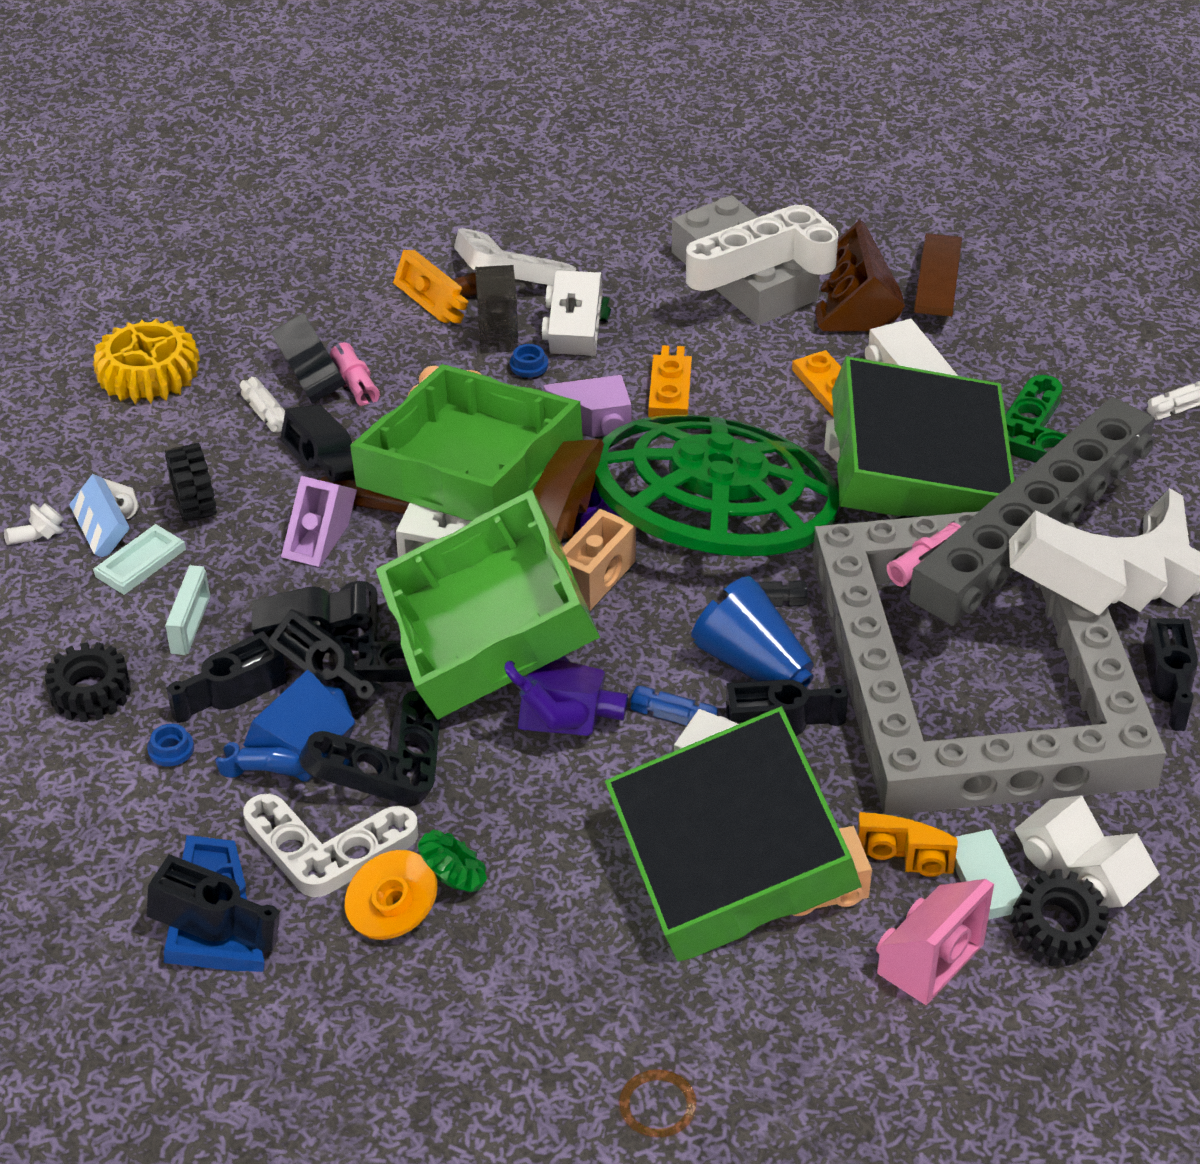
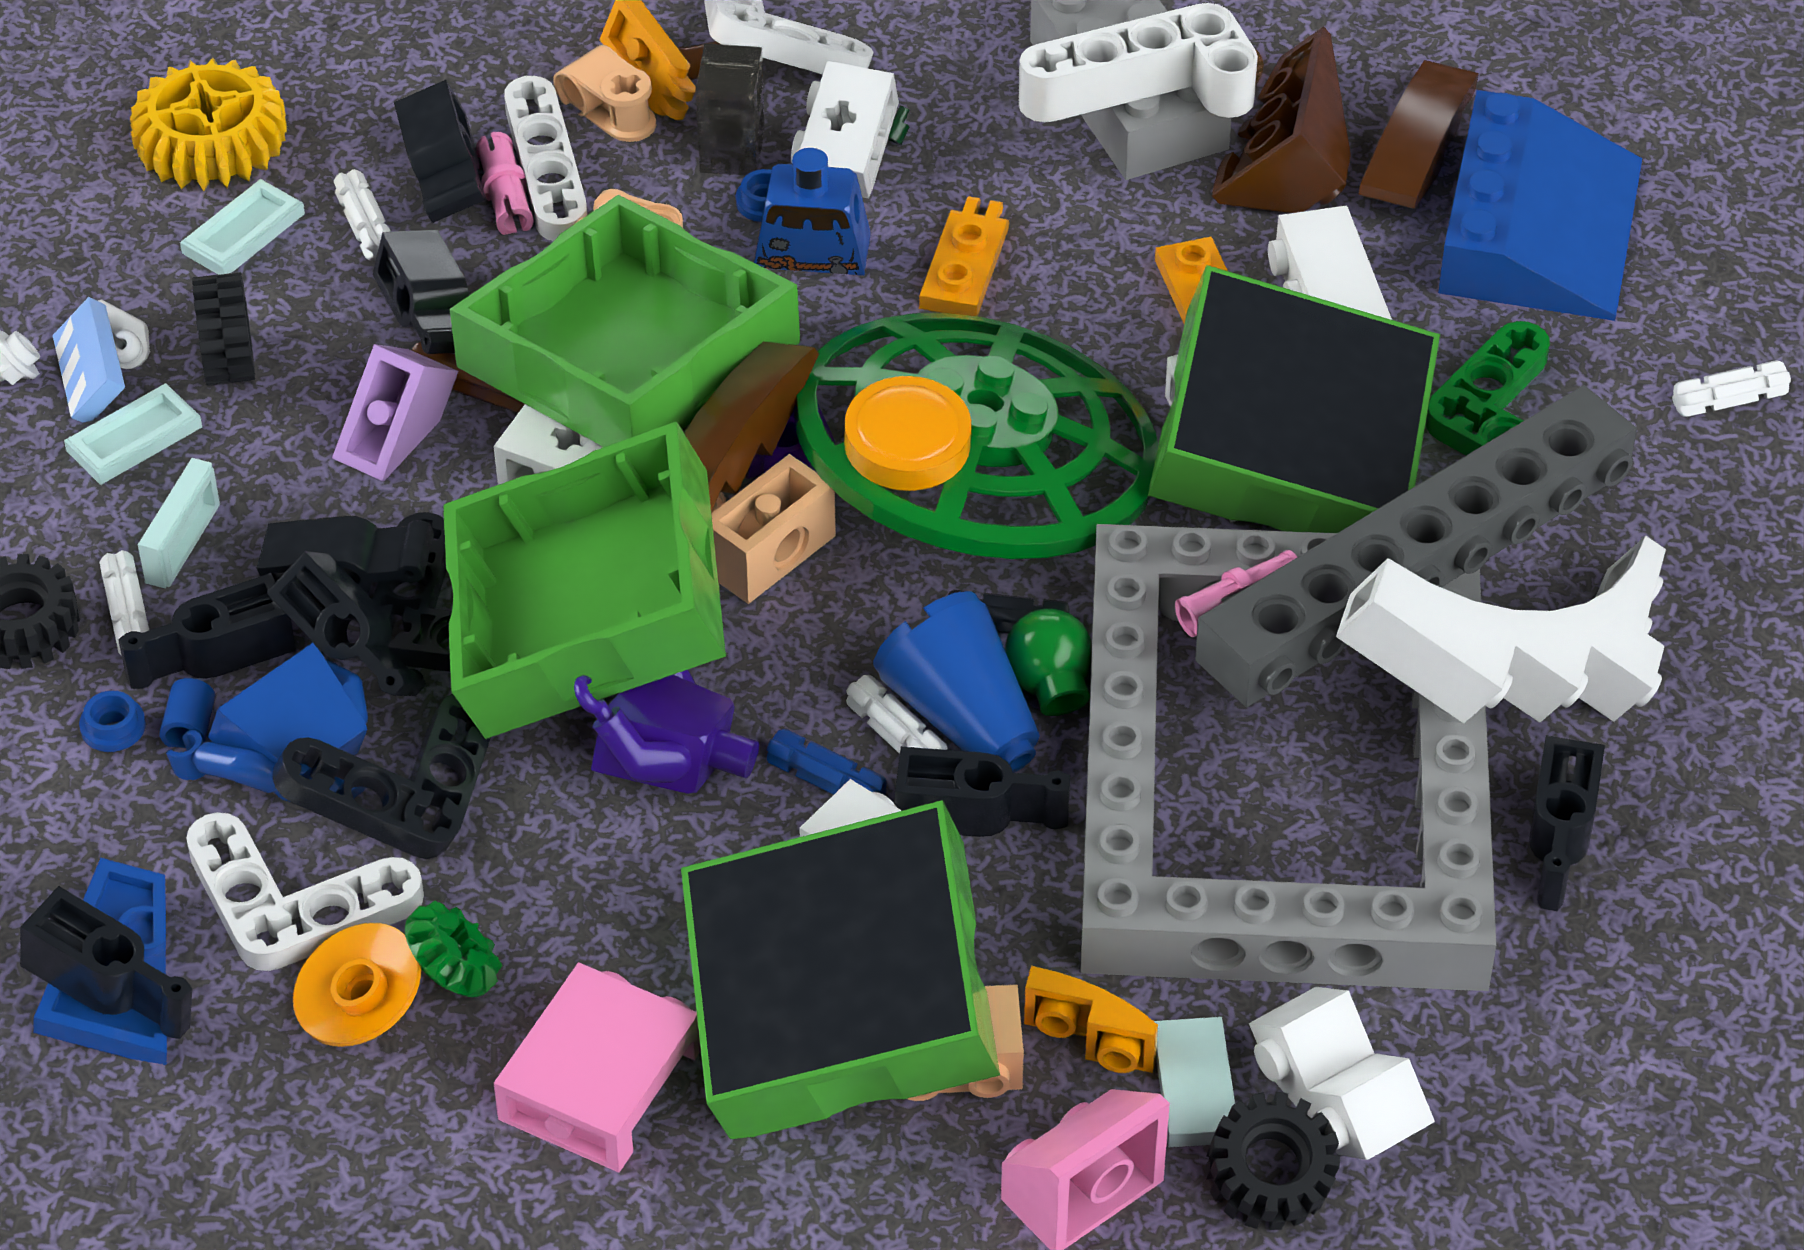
camera: 10 degrees right, 5 degrees up
(158, 663) = (123, 594): none -> white axle
(183, 421) = (242, 228): none -> light aqua tile
(221, 729) = (187, 709): none -> blue hinge
(377, 356) = (547, 158): none -> white beam
(409, 312) = (608, 93): none -> light nougat piece
(565, 356) = (813, 218): none -> blue torso
(574, 924) = (595, 1064): none -> bright pink panel
(602, 402) = (835, 281): lavender slope -> none
(680, 482) = (907, 433): none -> light orange piece
(706, 668) = (889, 716): none -> white axle
(808, 615) = (1051, 659): none -> green piece
(1026, 310) = (1539, 211): none -> blue slope

